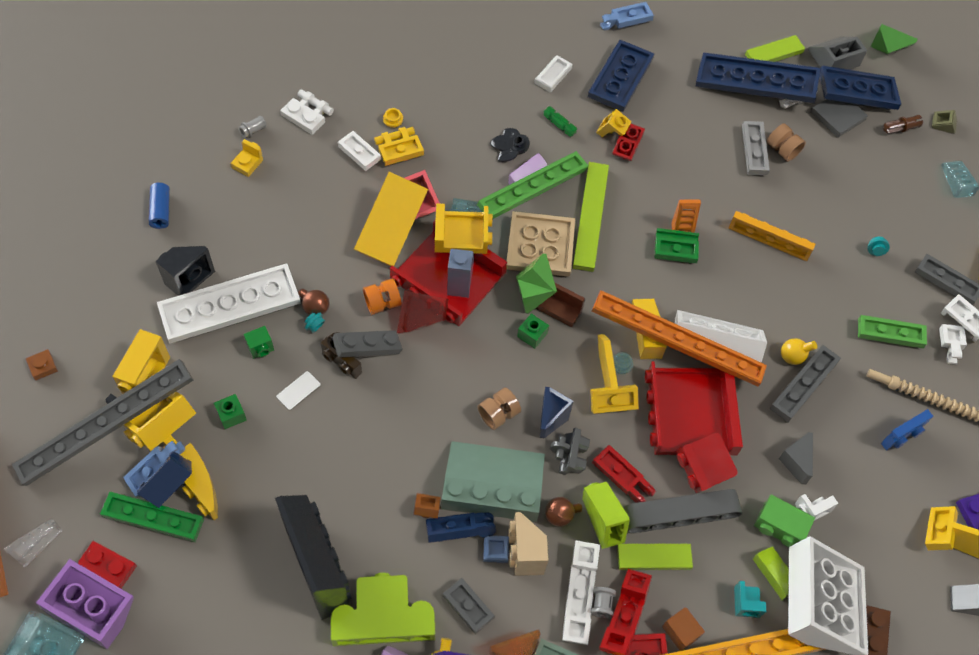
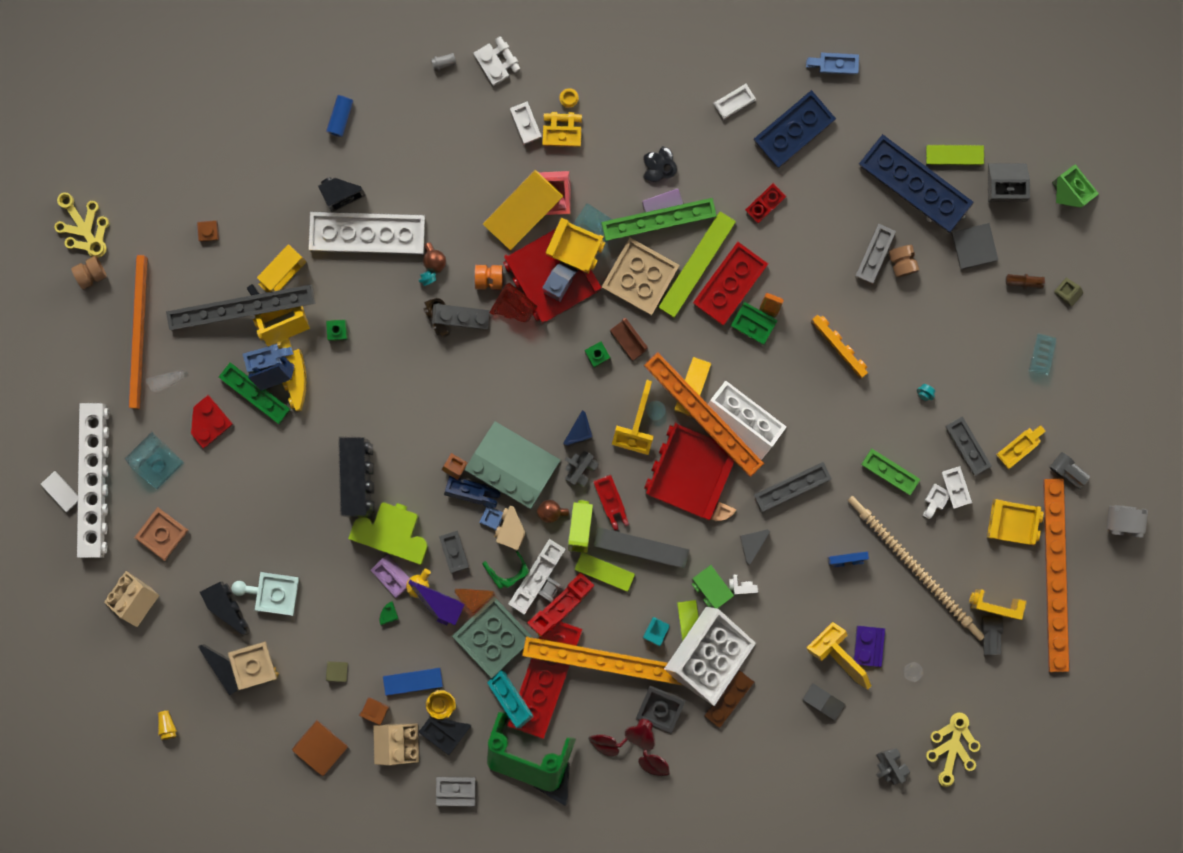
camera: 35 degrees right, 25 degrees up
(87, 603) = (191, 443): medium lavender slope -> none
(248, 158) = (428, 94): yellow bracket -> none
(259, 342) = (378, 280): green plate -> none
(298, 390) = (395, 330): white sticker -> none
(499, 408) = (540, 411): medium nougat wheel -> none
(536, 283) = (614, 316): bright green slope -> none
(560, 121) = (715, 157): green axle -> none
(561, 595) = (507, 582): none -> green helmet
(614, 122) = (759, 183): yellow bracket -> none
(633, 219) = (730, 283): none -> red plate
(683, 629) = (597, 631): dark orange panel -> none
(706, 462) = (677, 519): red bracket -> none
(749, 439) = (722, 512): none -> light nougat tile
(796, 350) = (800, 457): yellow piece -> none
(859, 88) = (1005, 229): dark blue plate -> none

